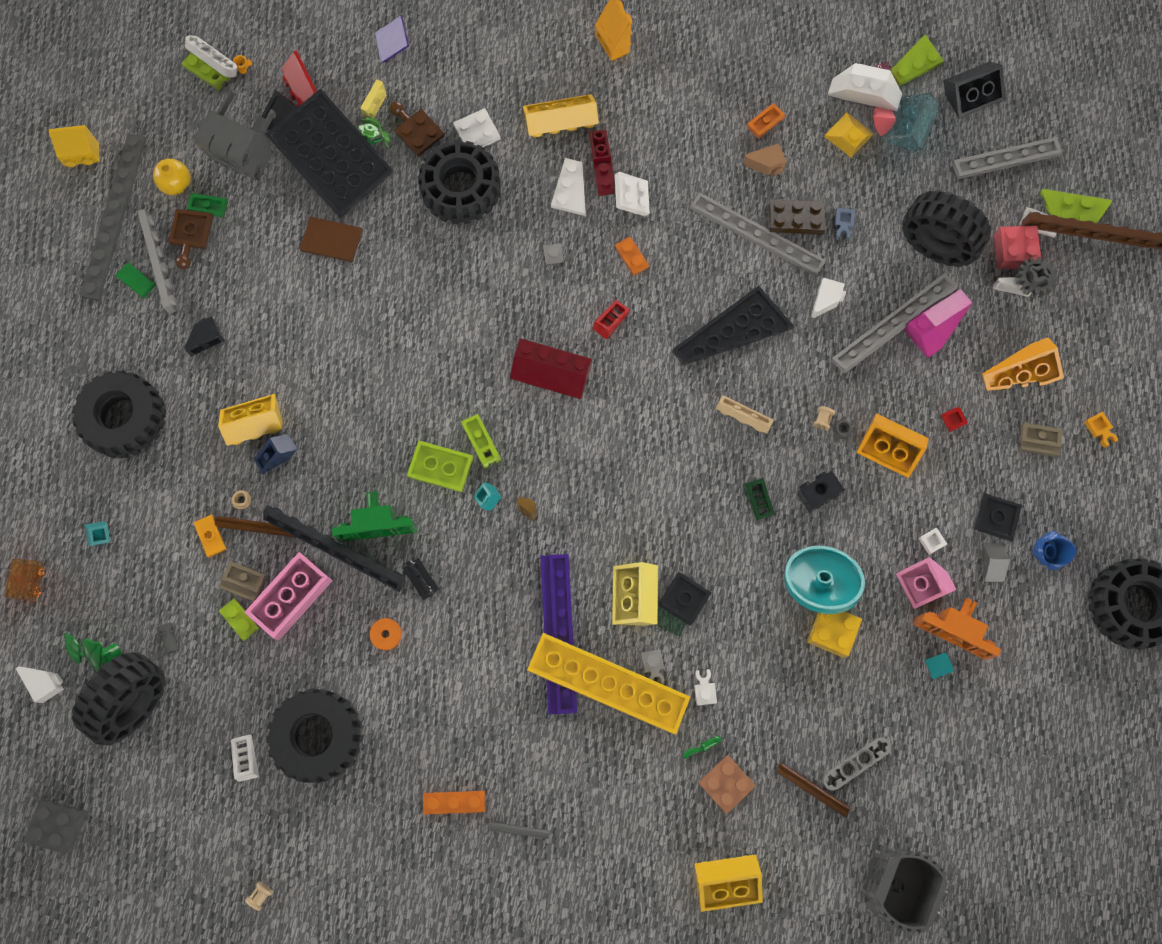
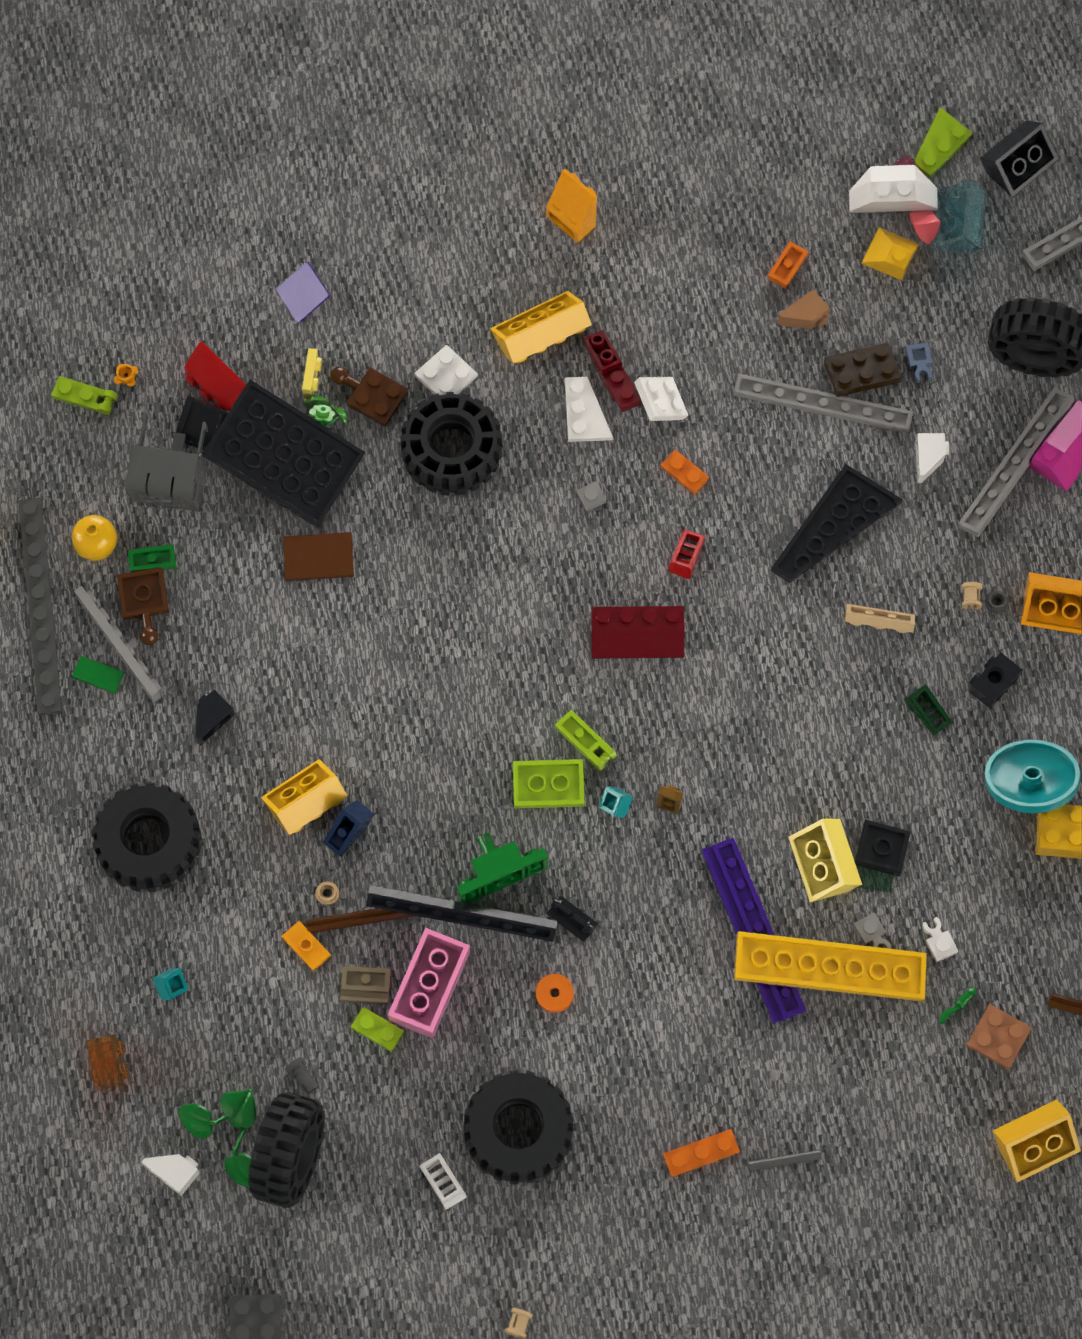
camera: 20 degrees left, 5 degrees down
(211, 56) = (87, 375): white beam -> none

